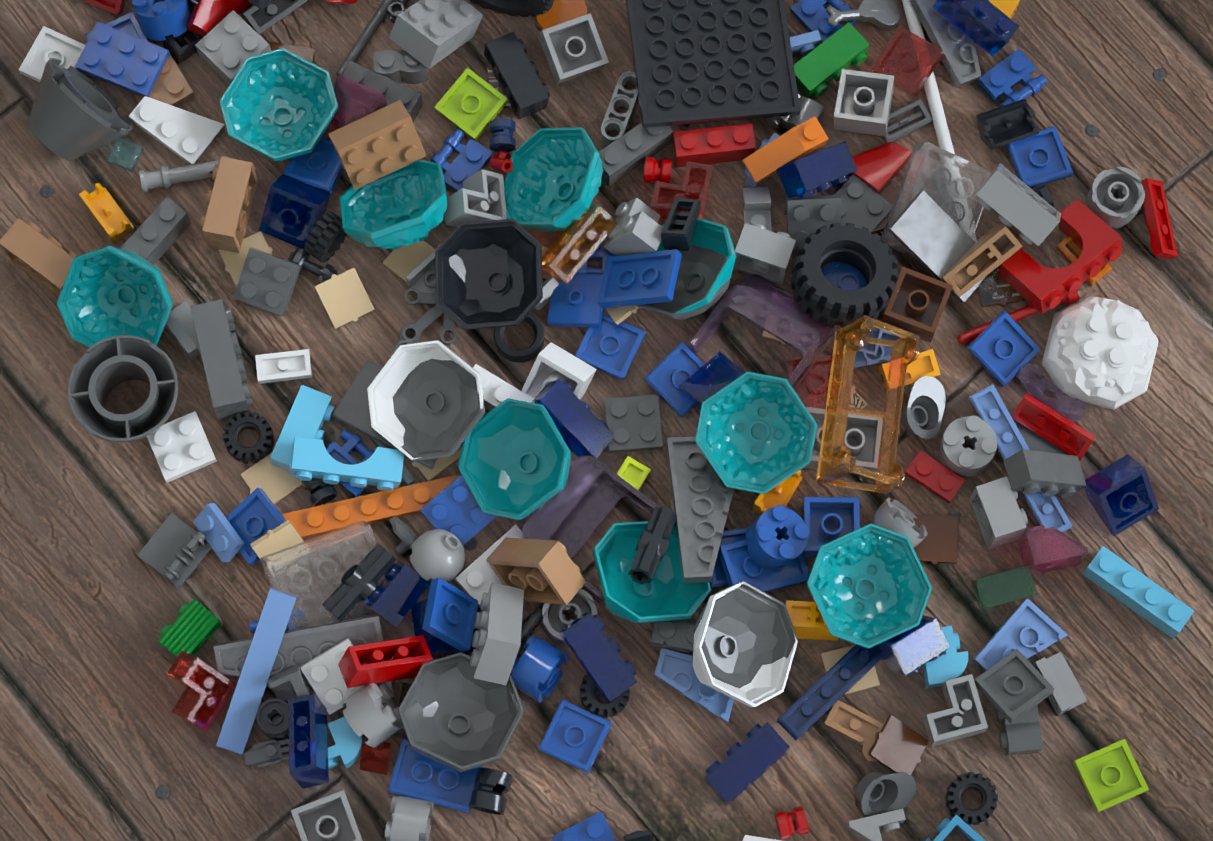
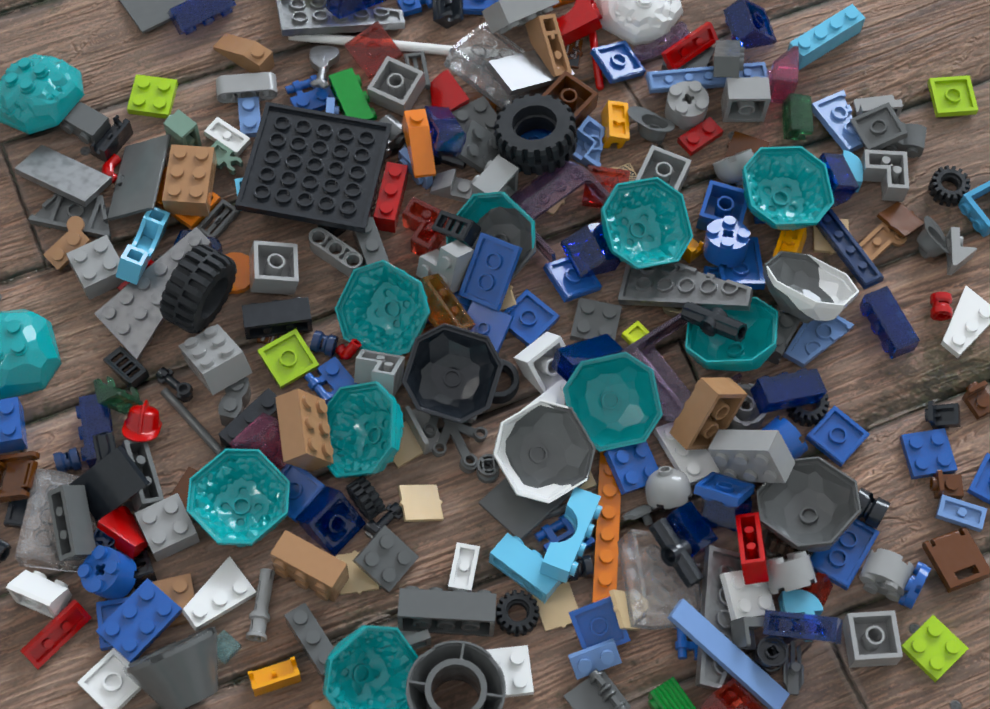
camera: 75 degrees left, 10 degrees down
(657, 170) = (397, 240): red wheel -> none
(836, 458) = (685, 179): clear orange windscreen -> none

